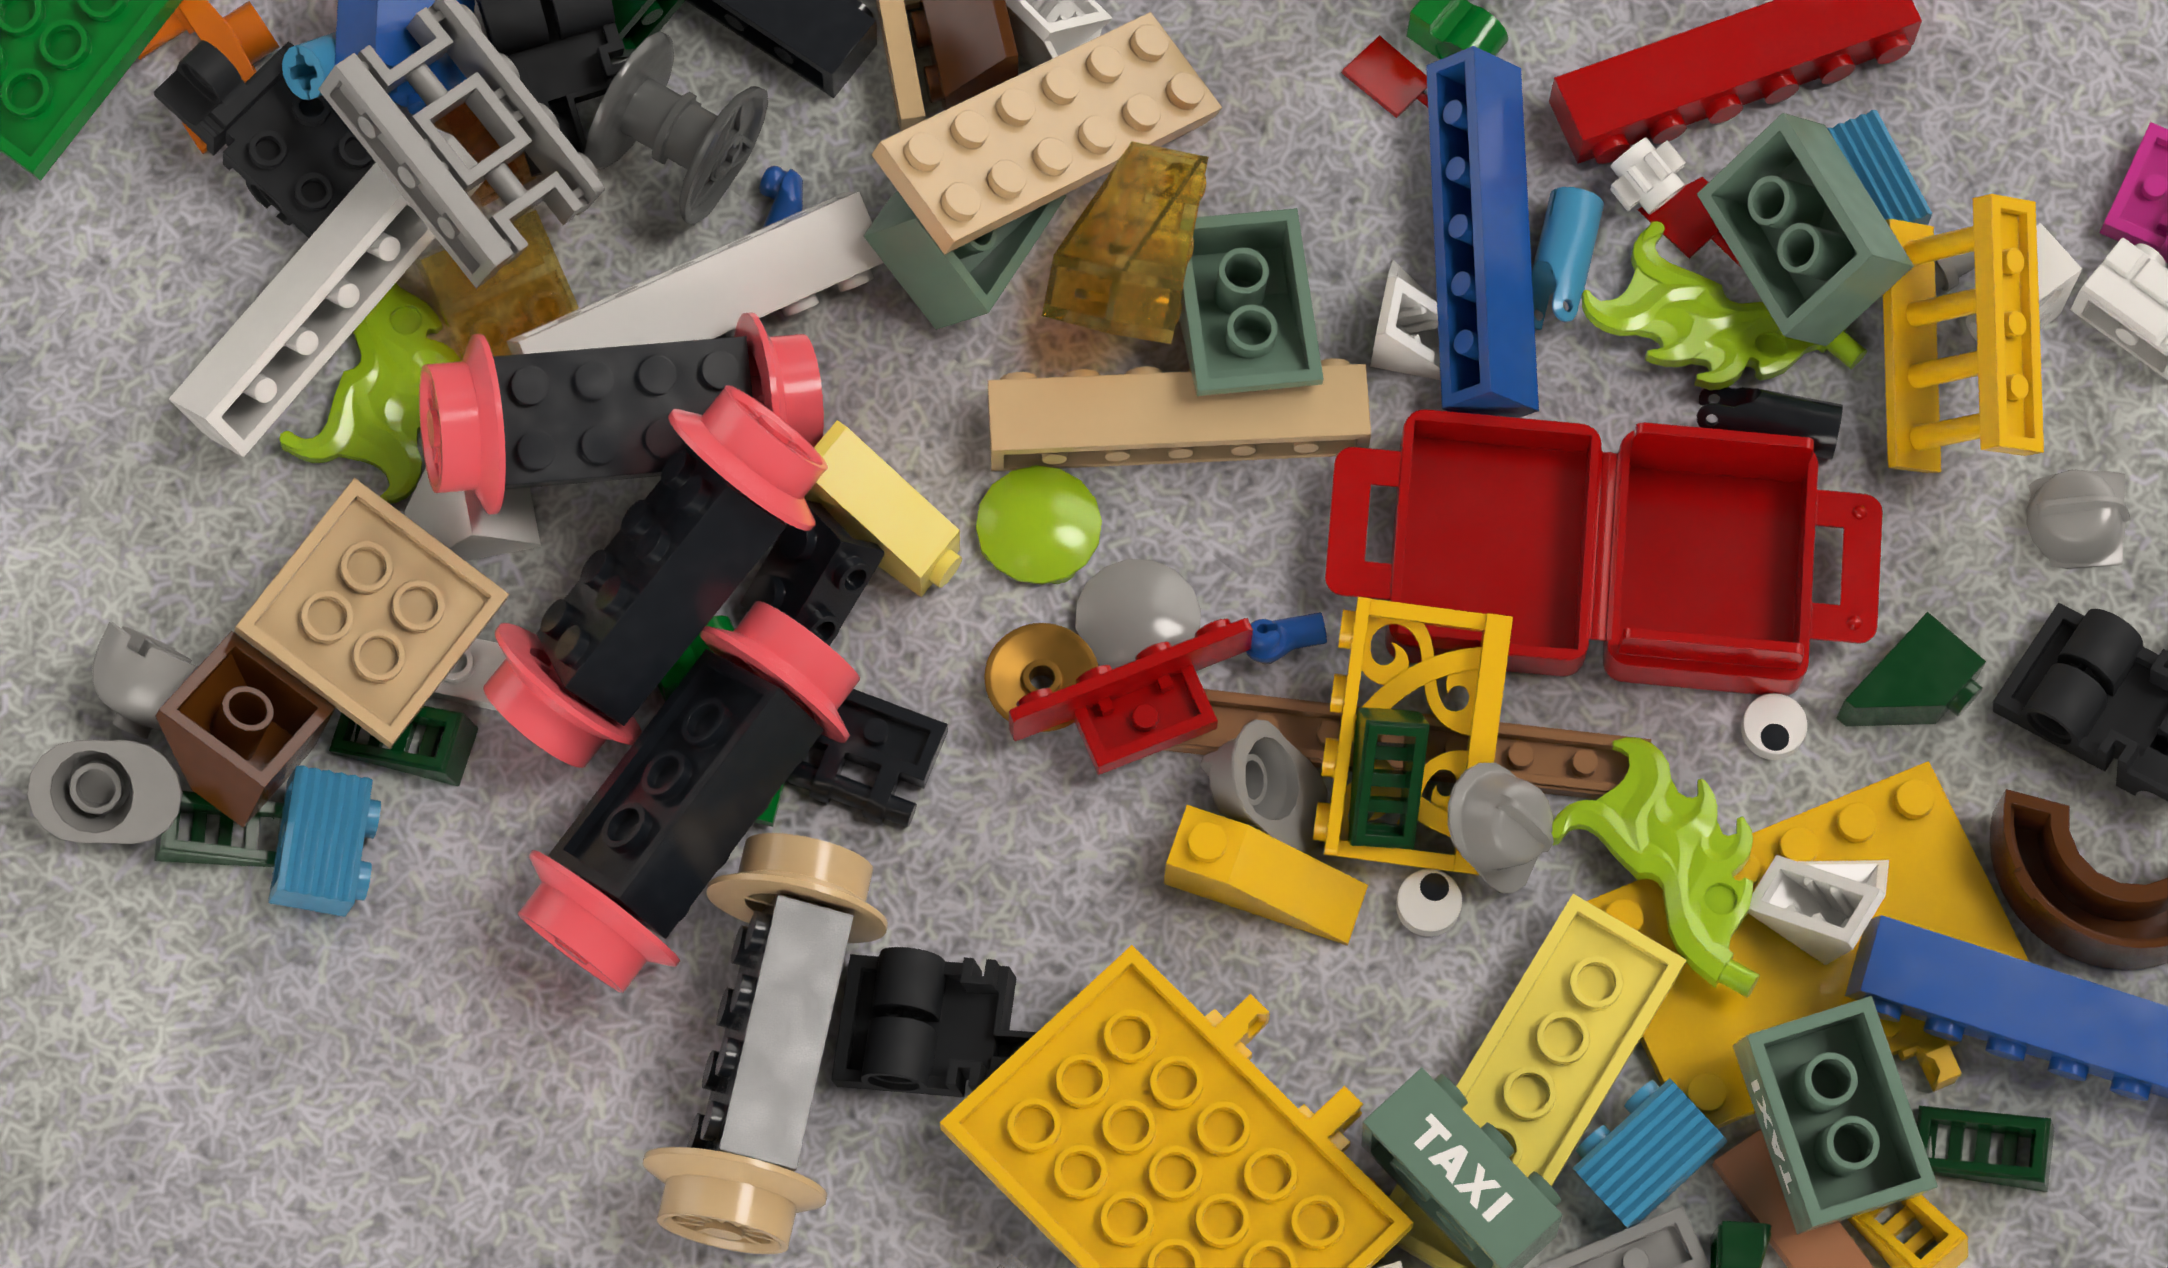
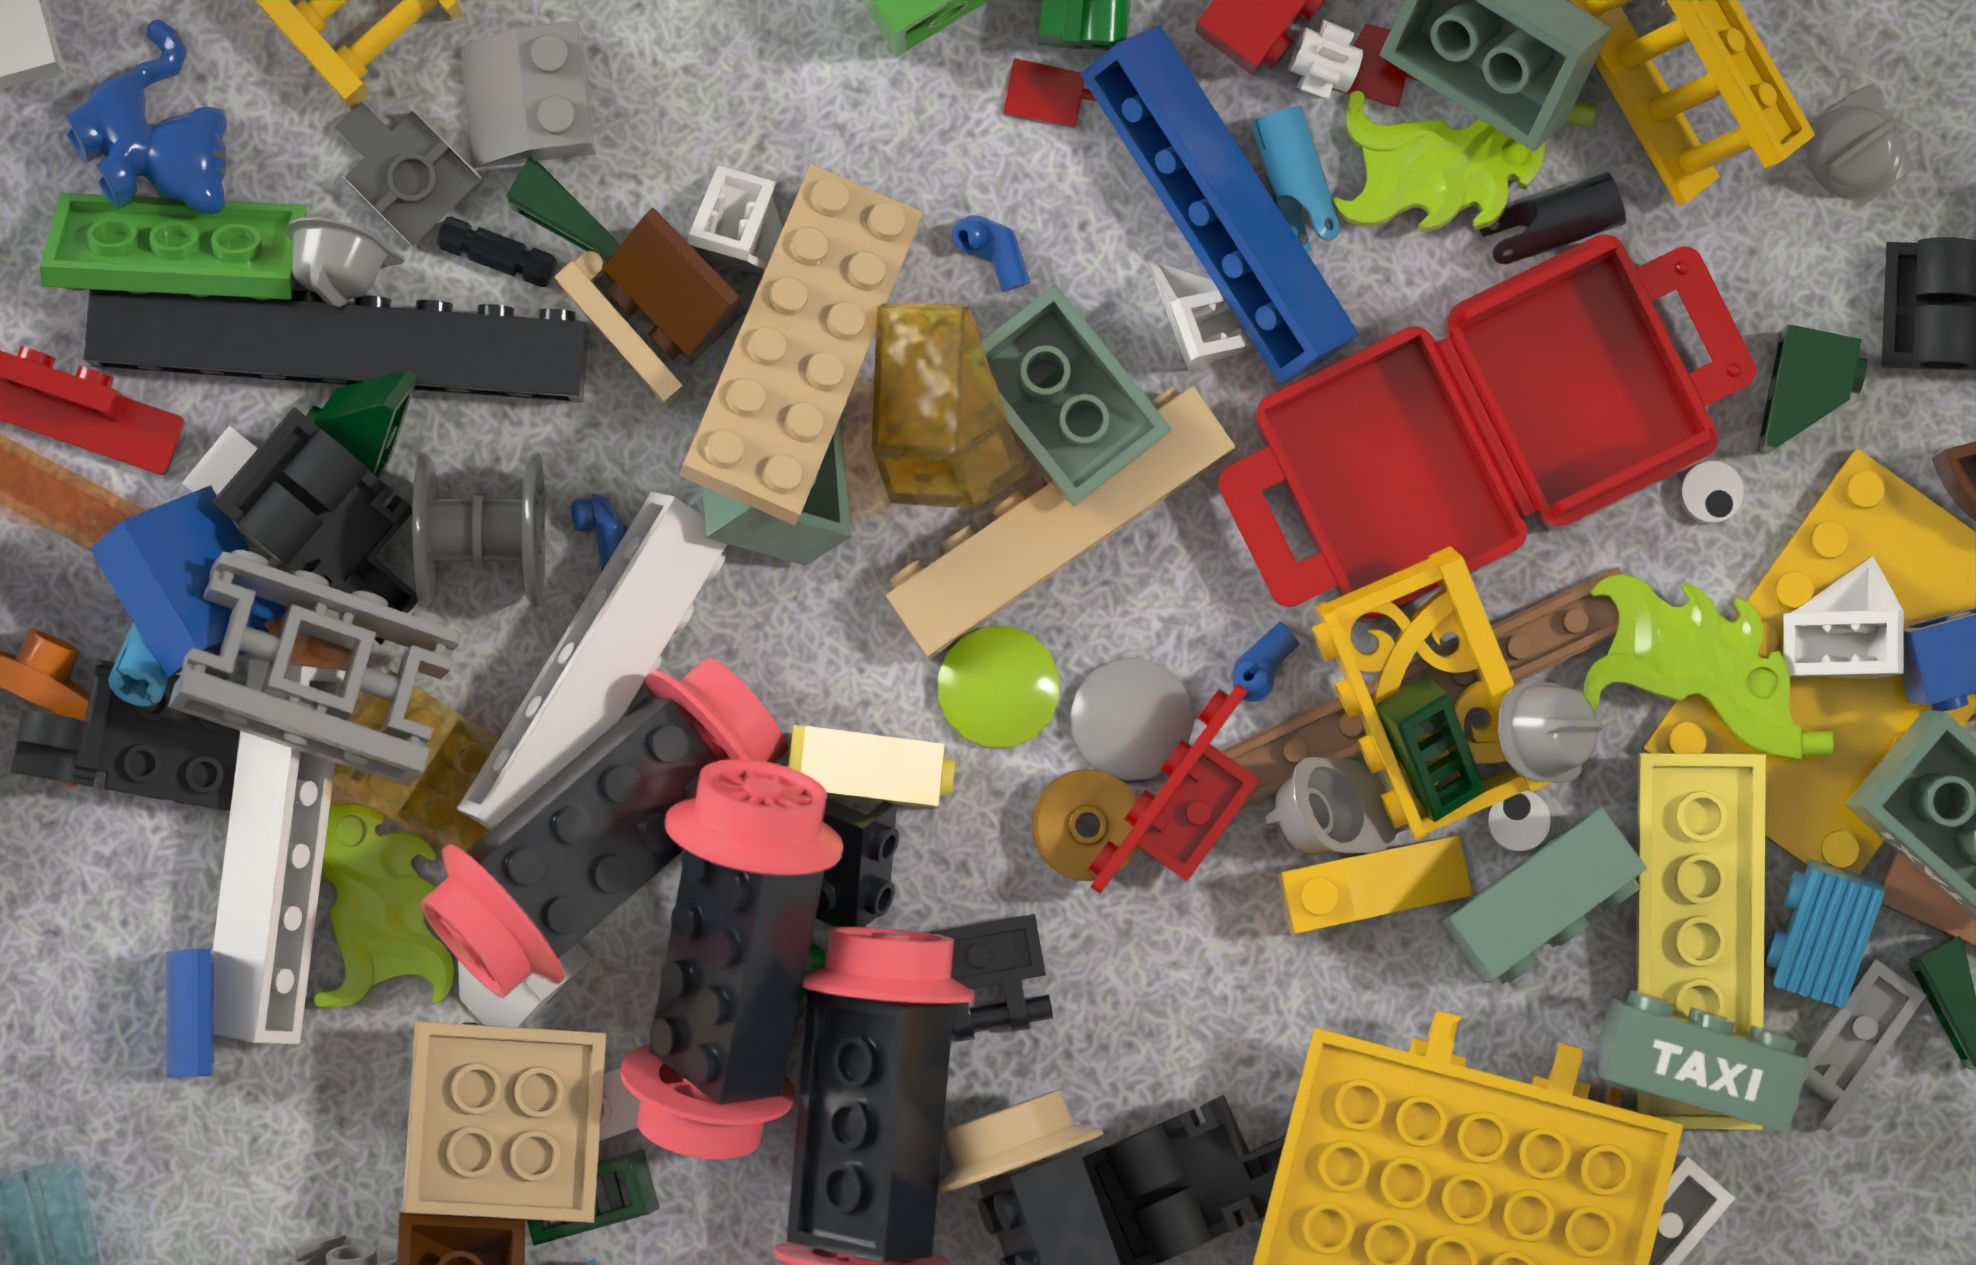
camera: 30 degrees left, 15 degrees up
(170, 374) = (190, 1013): none -> blue slope
(1265, 166) = (994, 244): none -> blue arm
(1409, 965) = (1545, 898): none -> sand green brick

